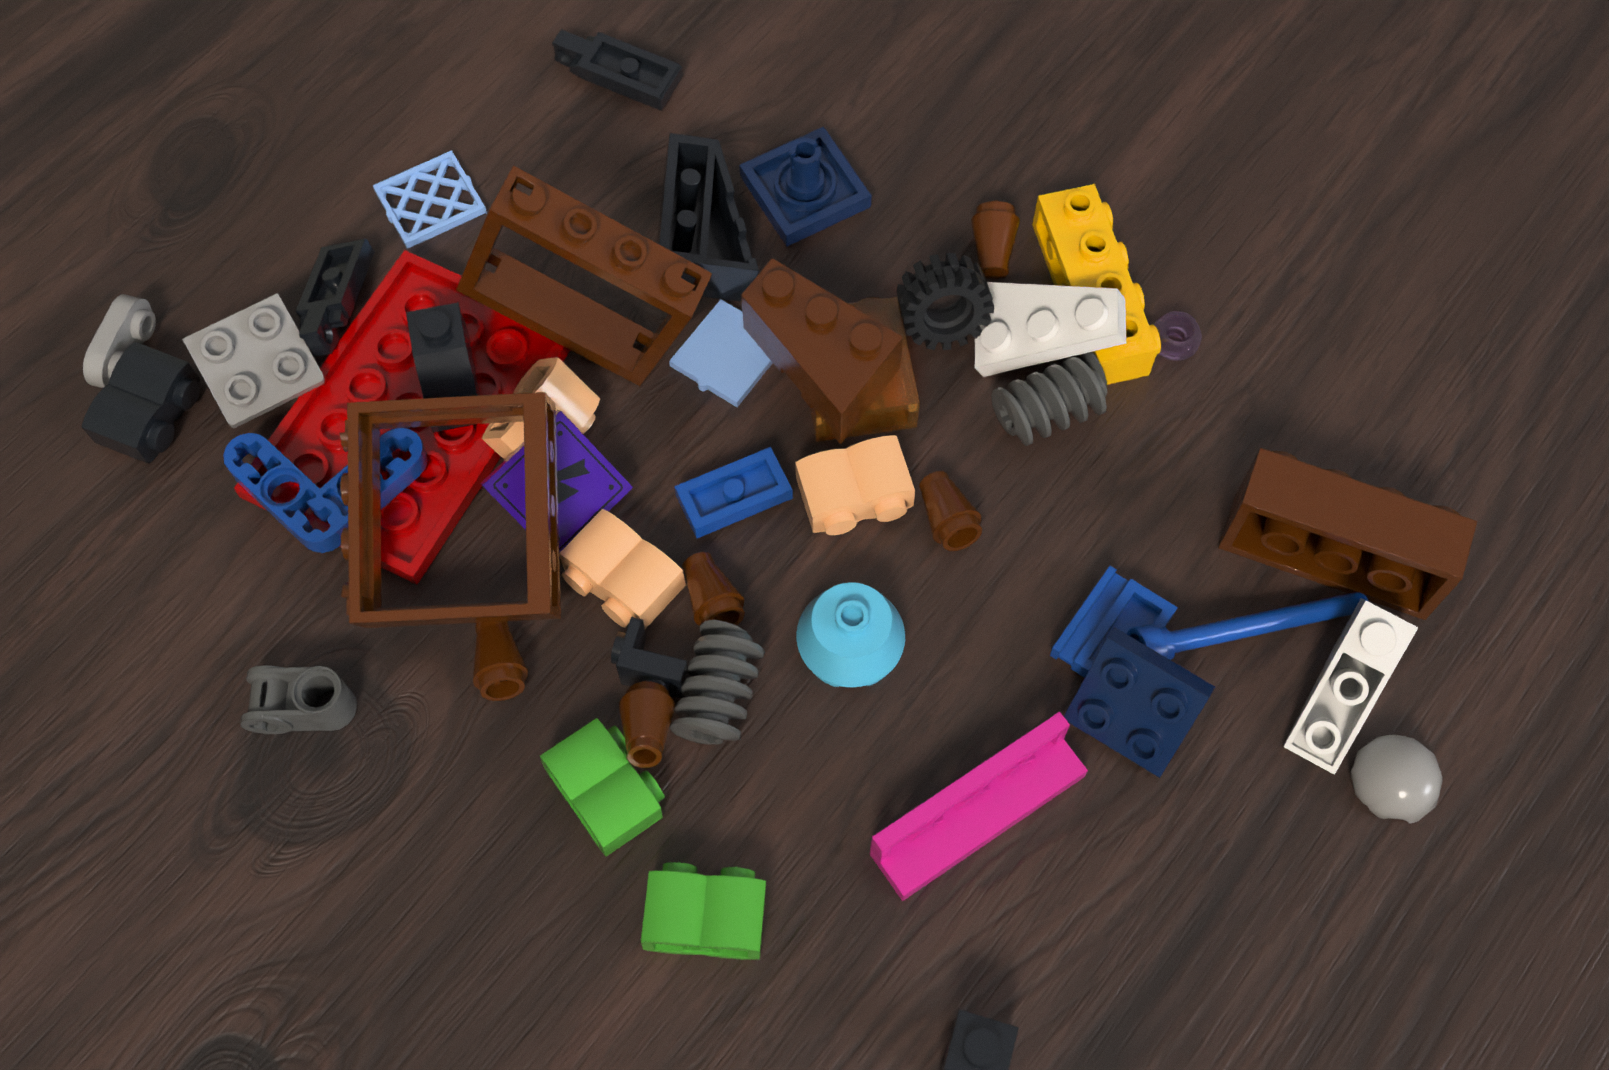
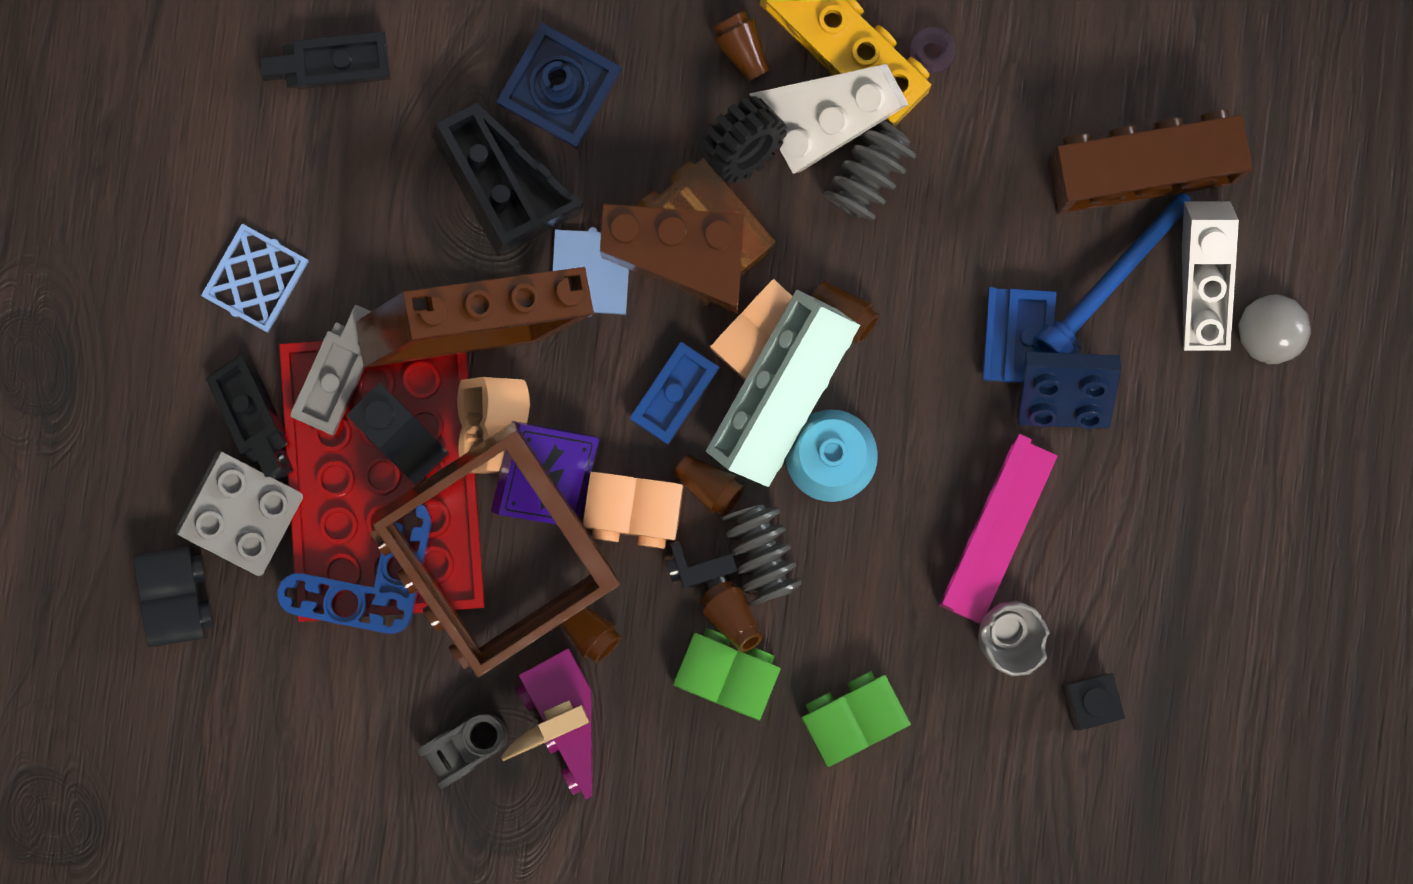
camera: 35 degrees left, 20 degrees up
(125, 322) = (108, 538): light grey plate -> none
(394, 714) = (559, 721): none -> tan plate
(421, 288) = (332, 377): none -> light grey hinge
(421, 720) = (549, 686): none -> magenta slope
(841, 533) = (782, 388): none -> light aqua brick
(929, 928) = (1013, 638): none -> light grey hair

